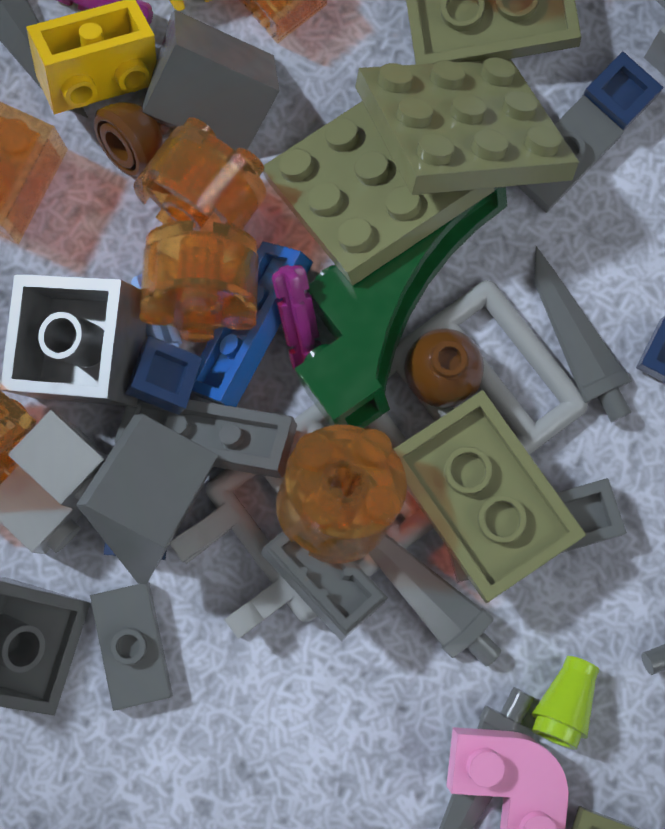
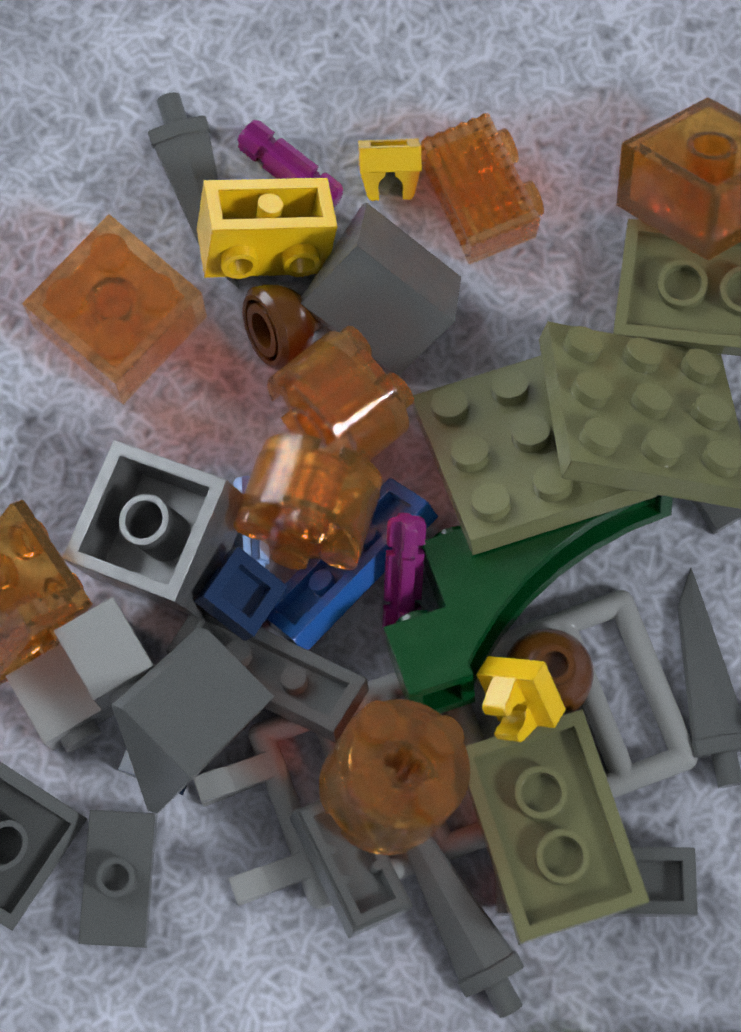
camera: 15 degrees right, 5 degrees down
(427, 394) = (519, 696): none -> yellow tile

